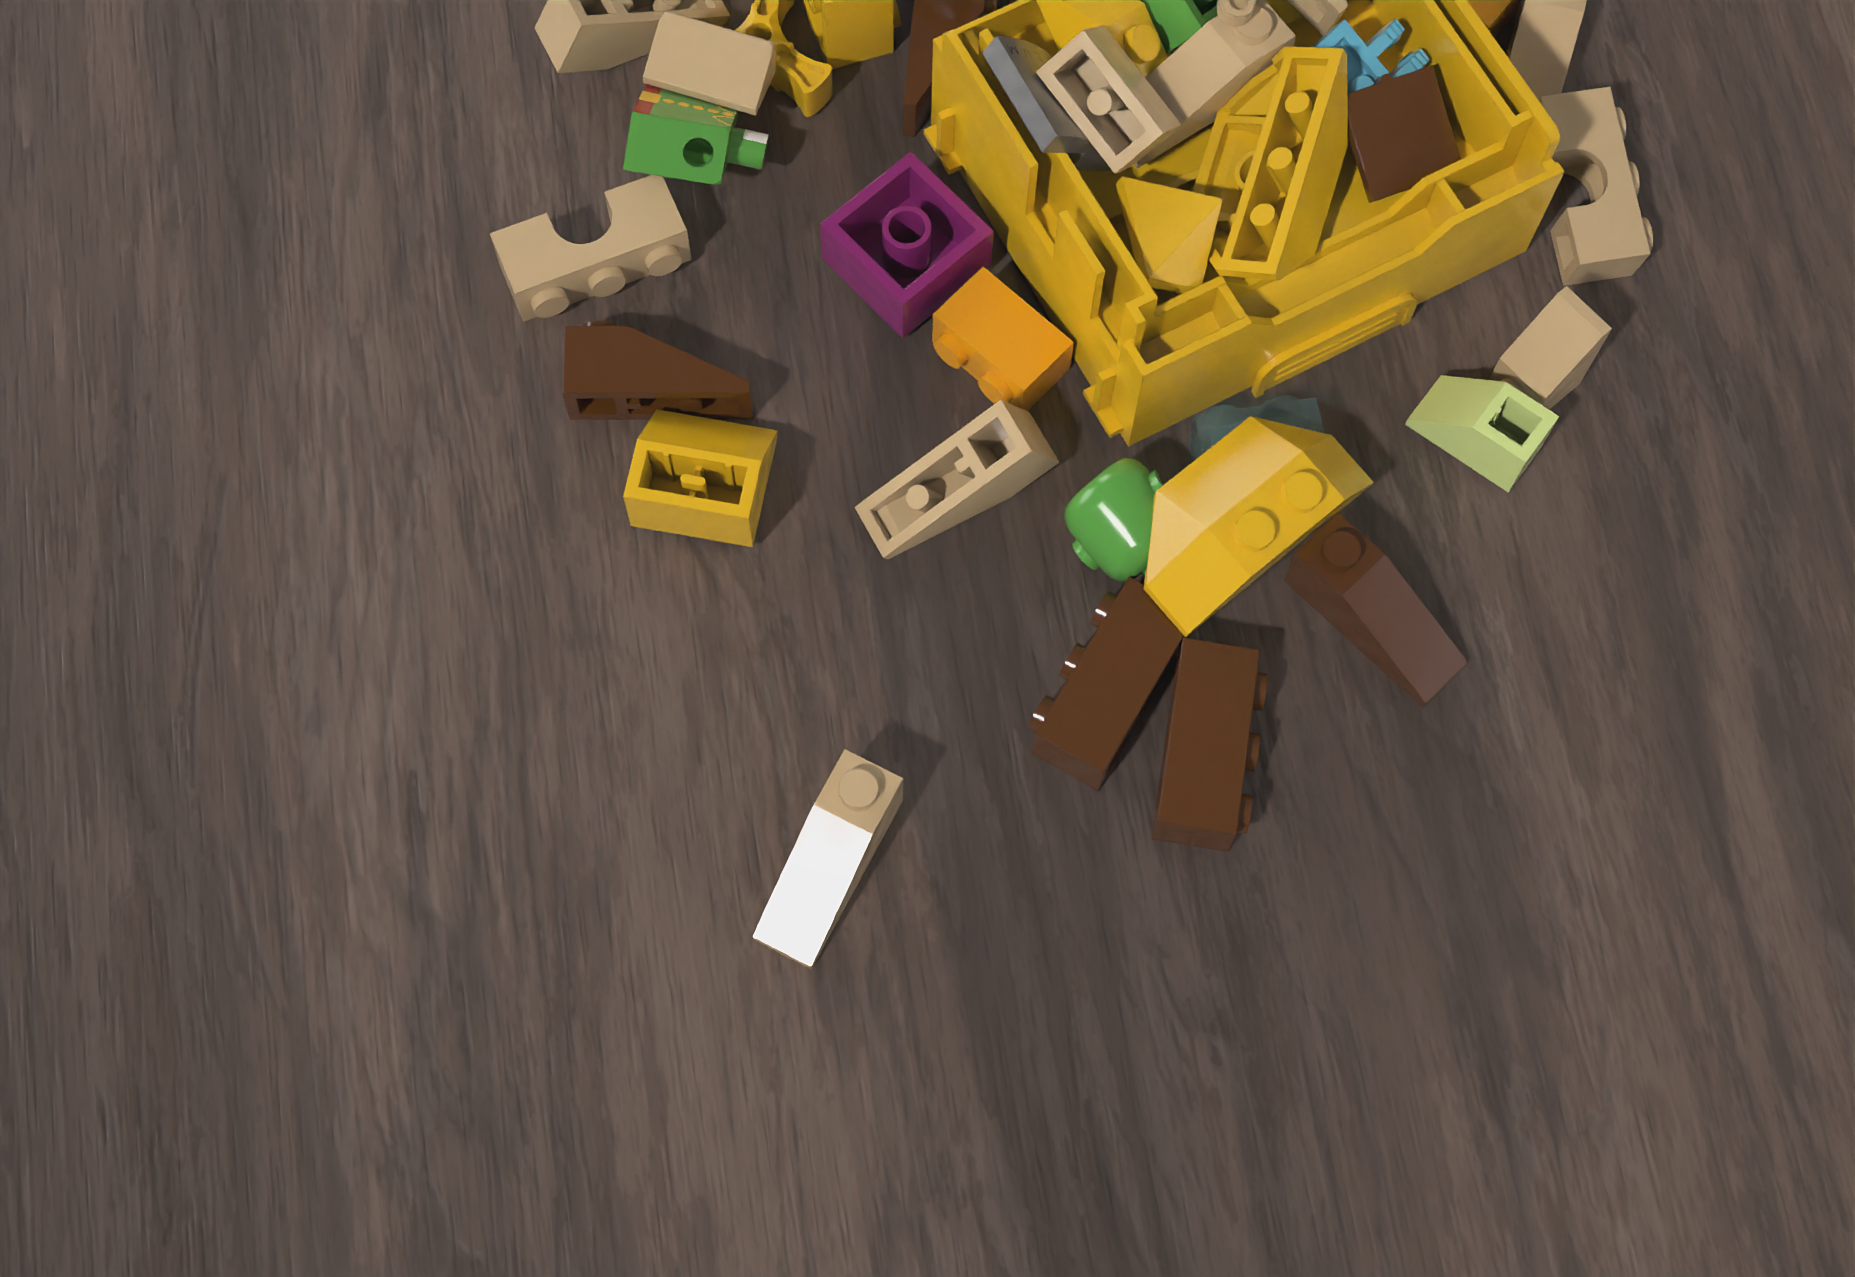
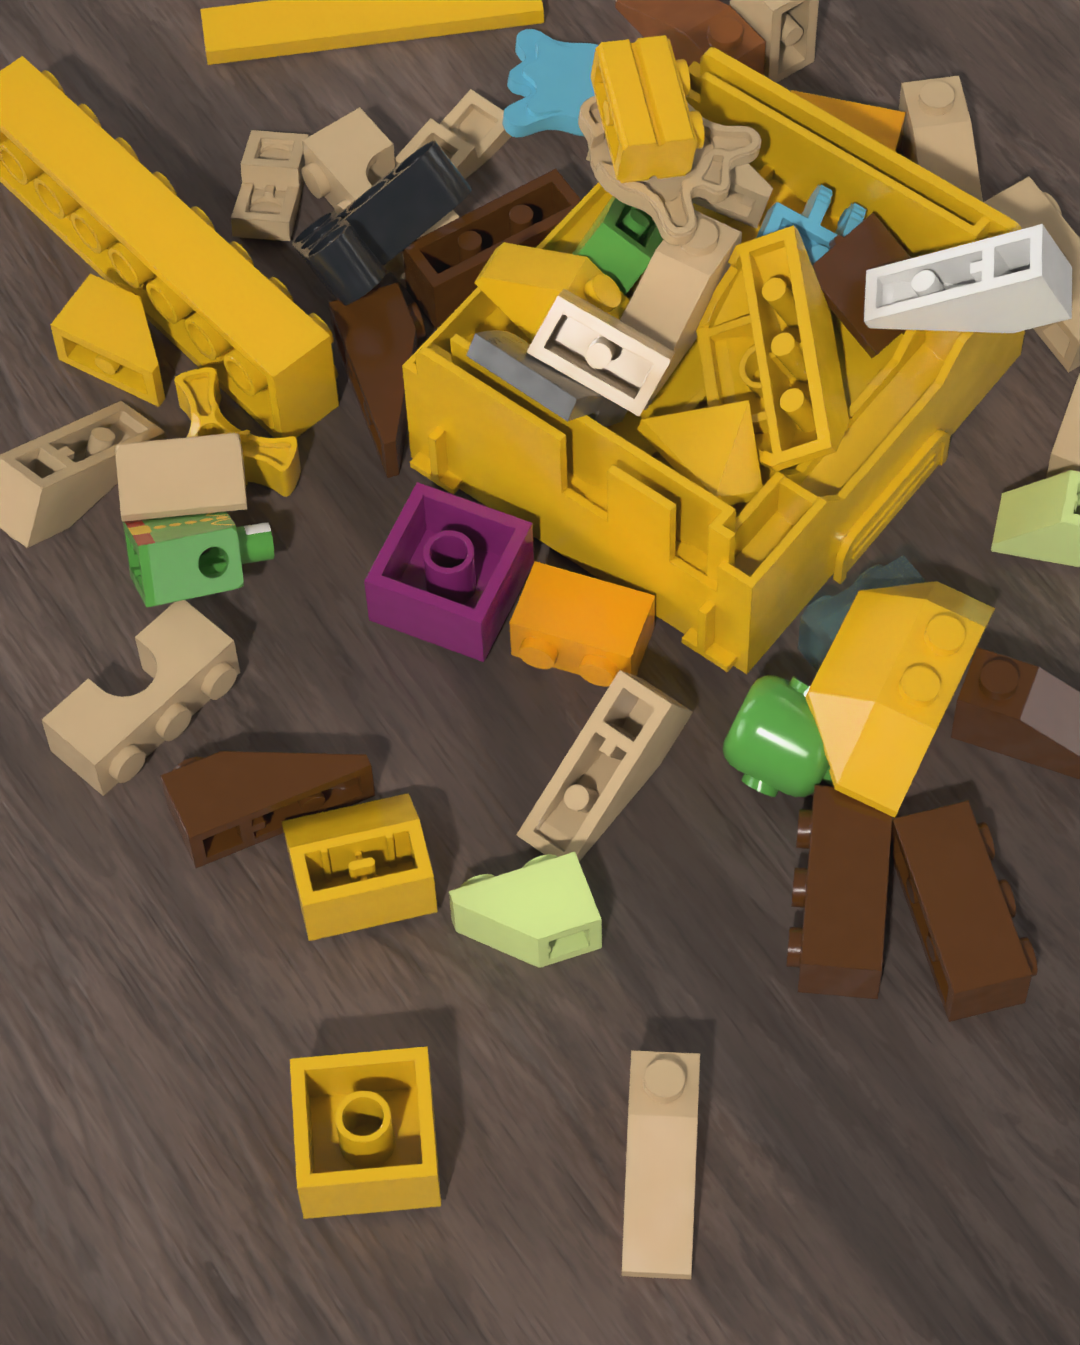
camera: 20 degrees left, 10 degrees down
(586, 719) = (364, 1132): none -> yellow brick
(830, 583) = (531, 912): none -> yellowish green slope
(1491, 176) = (976, 287): none -> white slope

